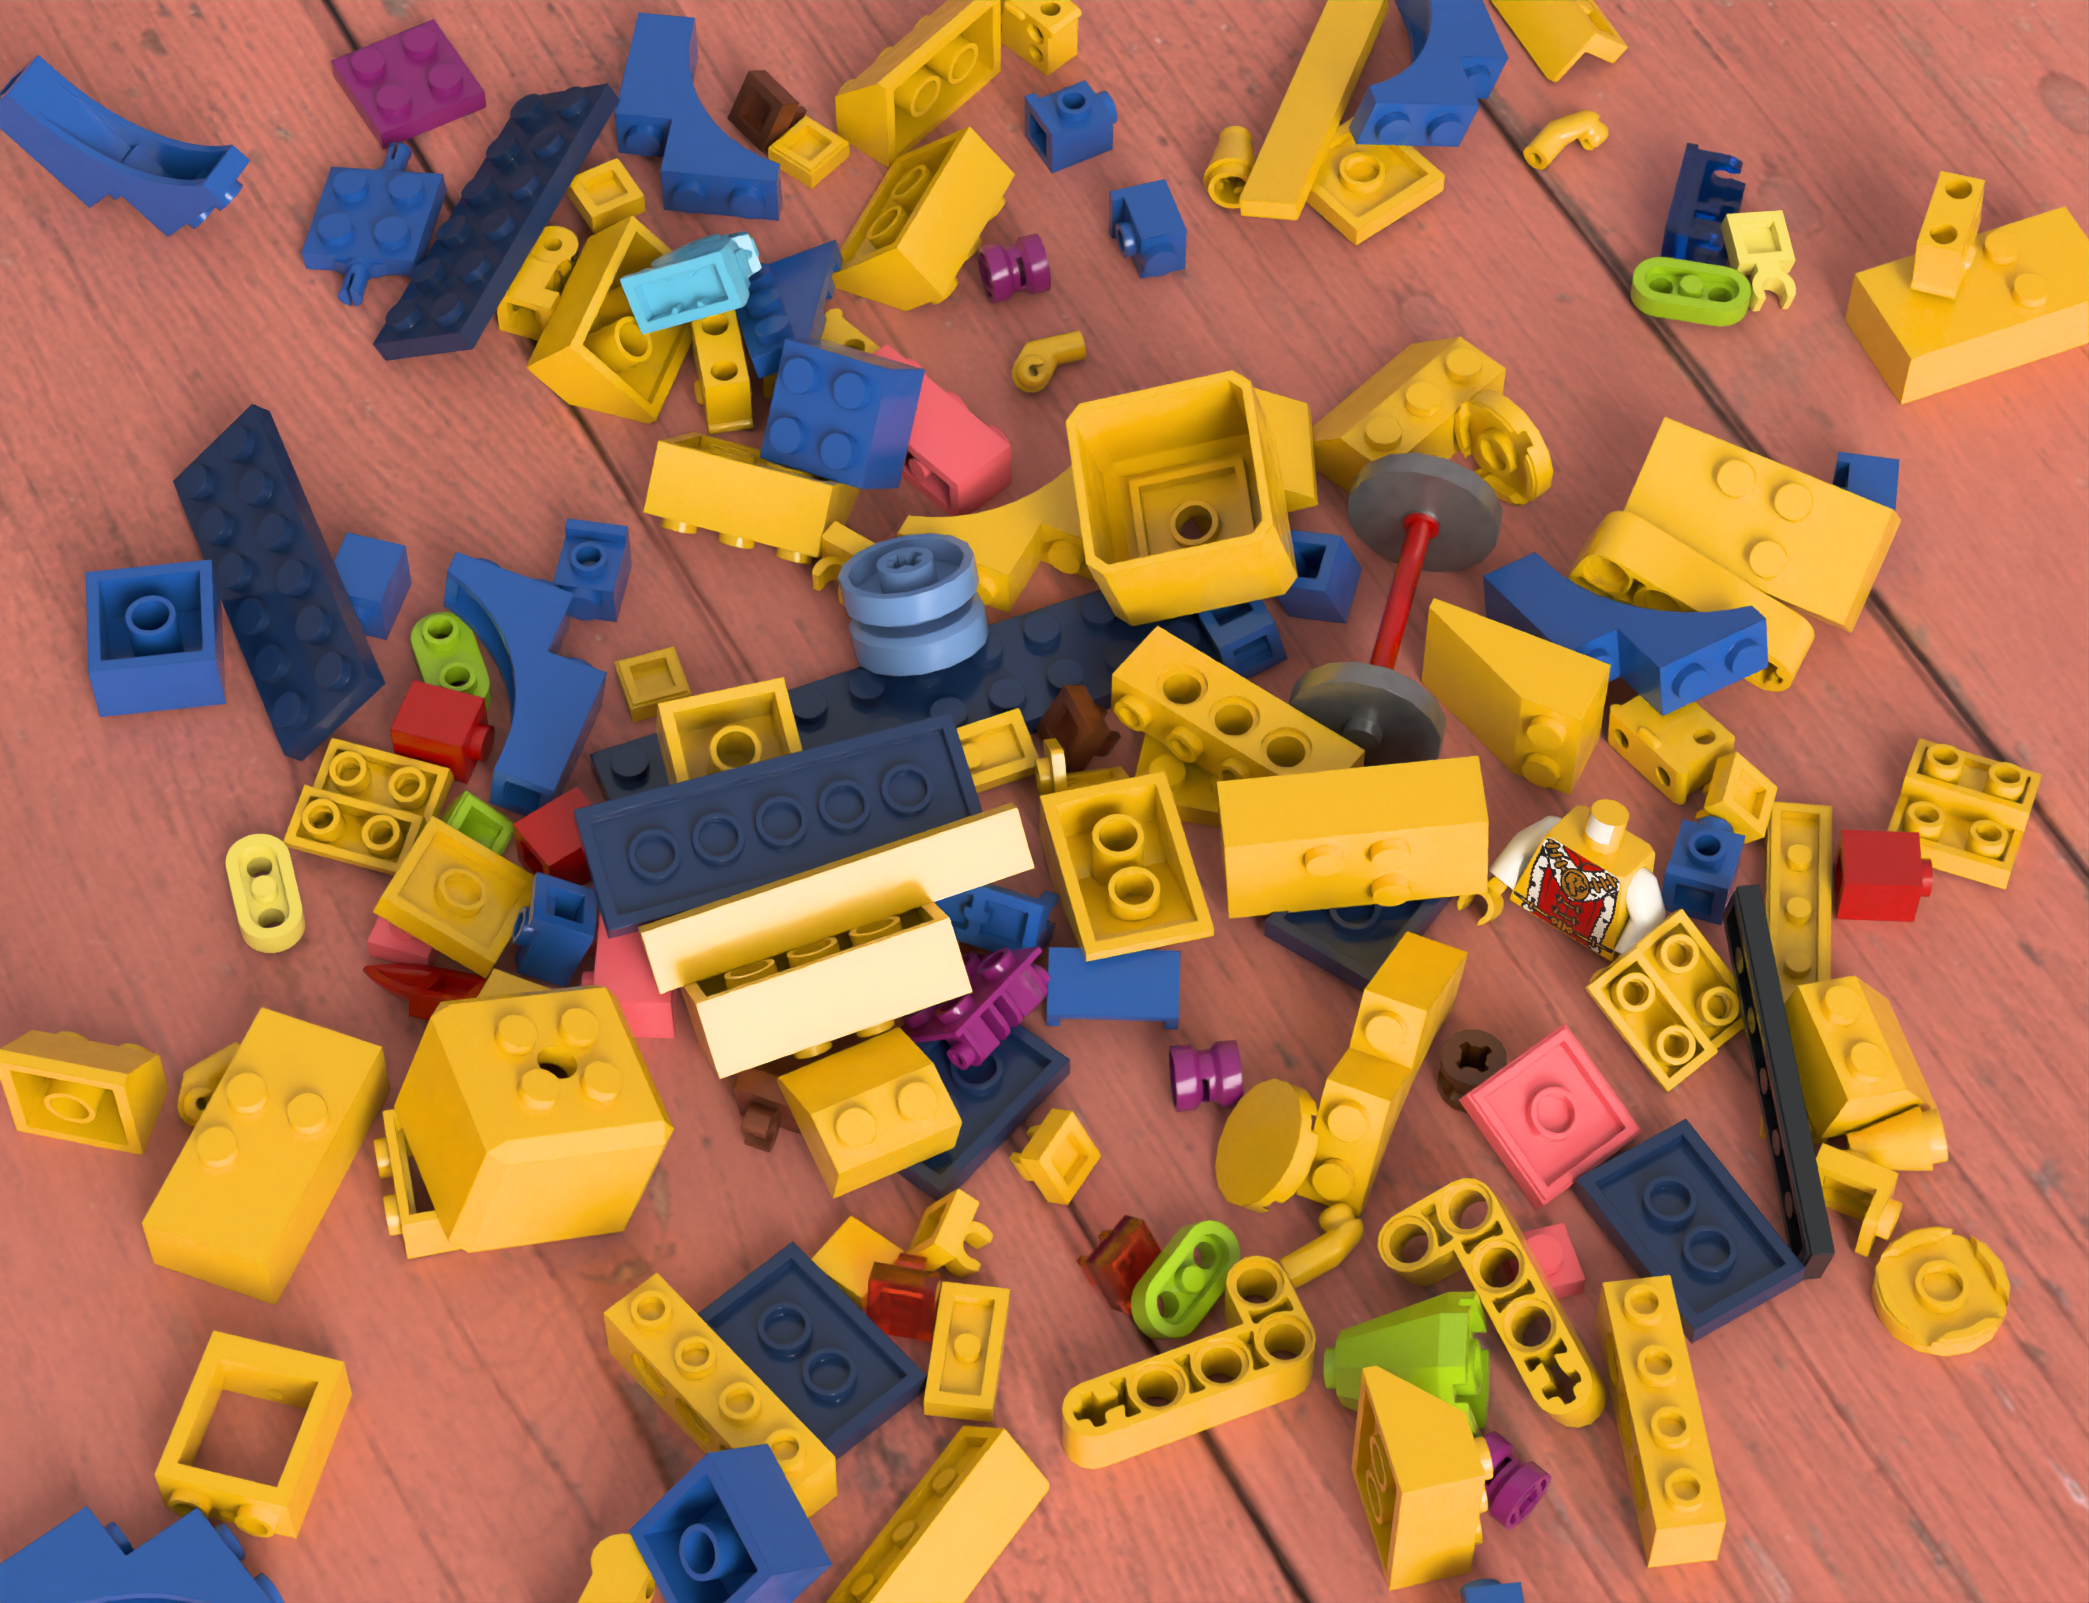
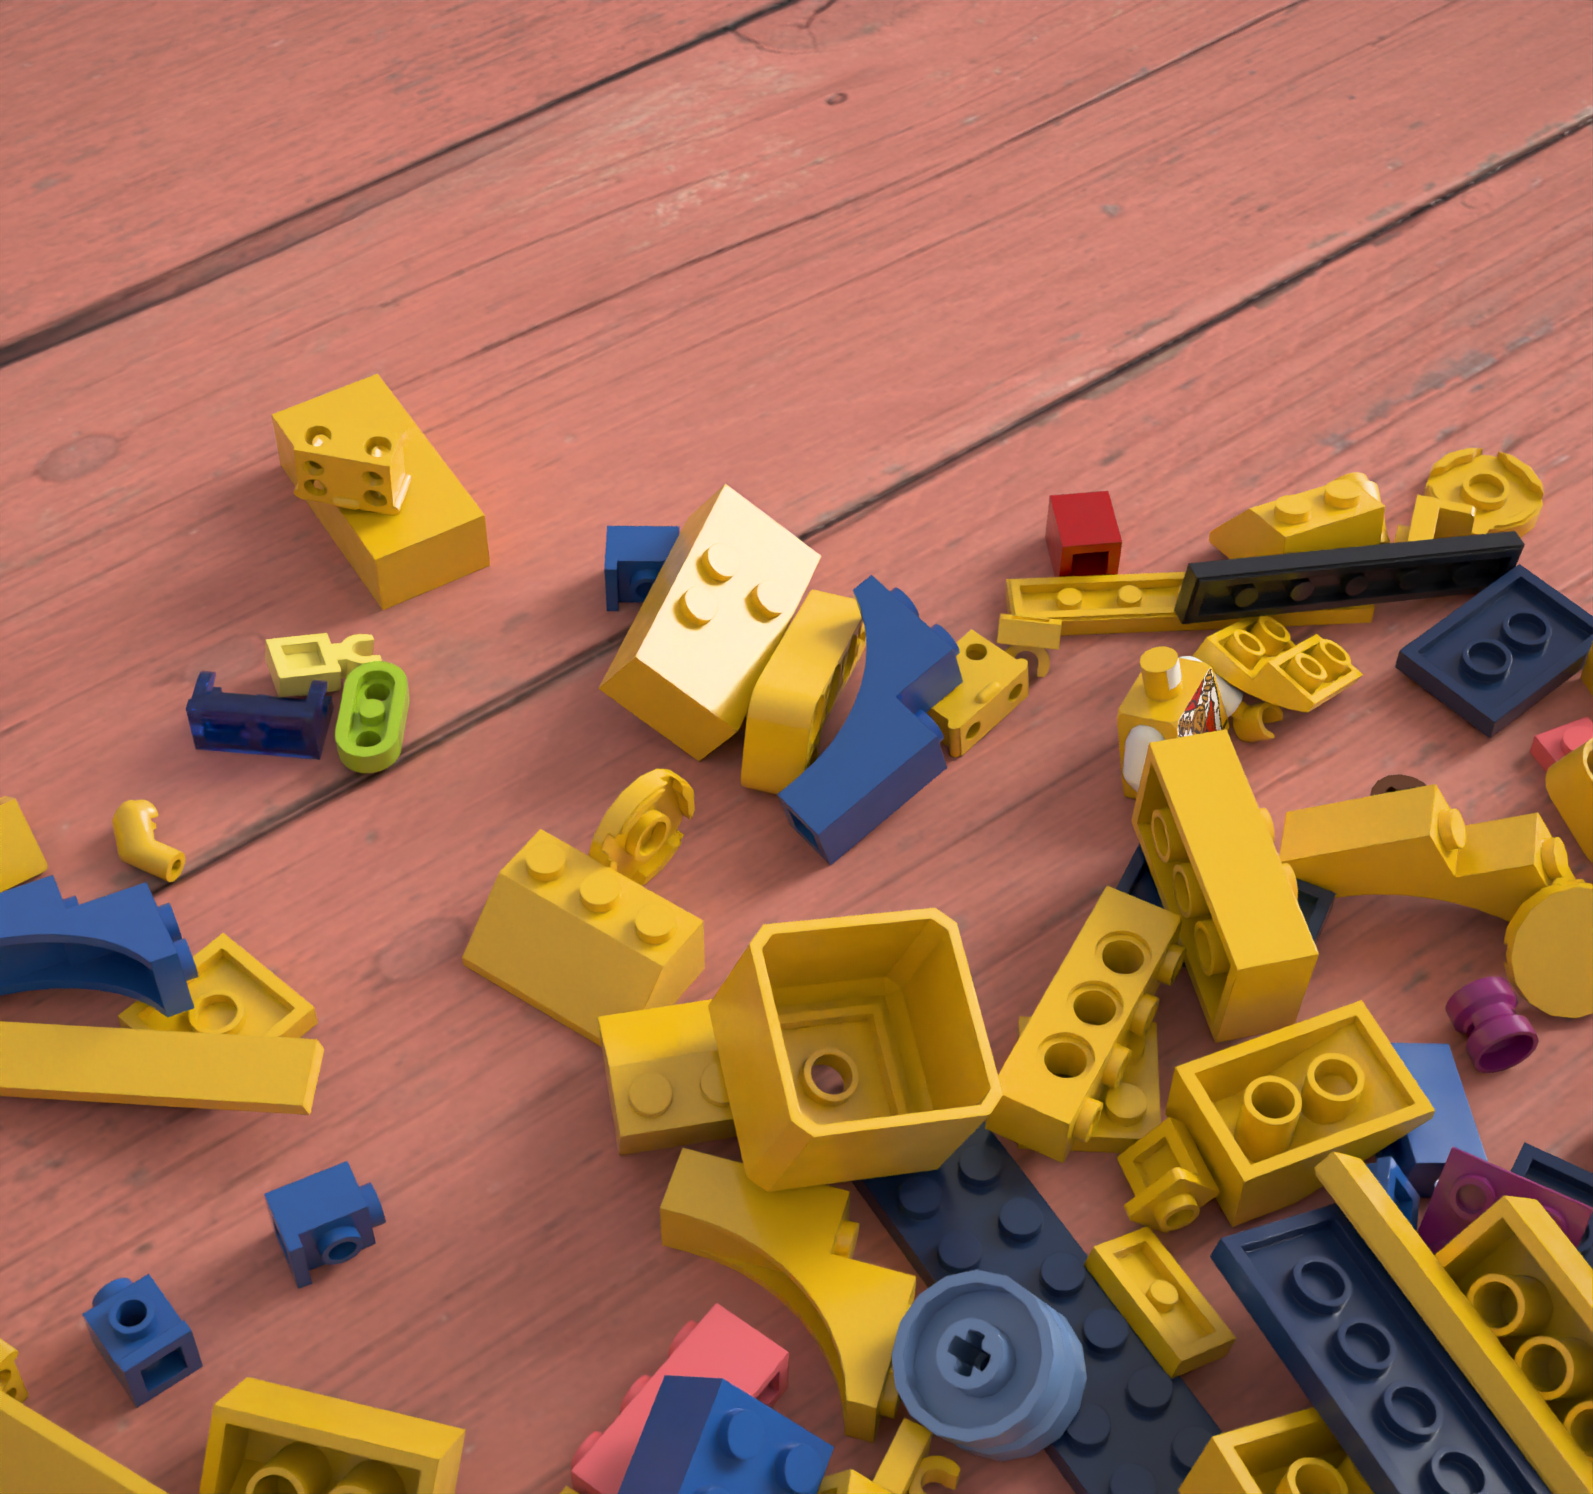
camera: 100 degrees left, 5 degrees down
(1014, 268) = (395, 1359): magenta wheel -> none
(1042, 356) = (532, 1326): yellow arm -> none
(1077, 727) = (1091, 1198): copper tile -> none
(1230, 166) = (208, 1150): yellow cone -> none
(1424, 518) = (1047, 903): flat silver piece -> none
(1517, 693) = (975, 787): yellow slope -> none
(1550, 1116) = (1434, 746): coral tile -> none
(1705, 859) = (1106, 659): blue brick -> none
(1966, 811) = (984, 498): yellow slope -> none

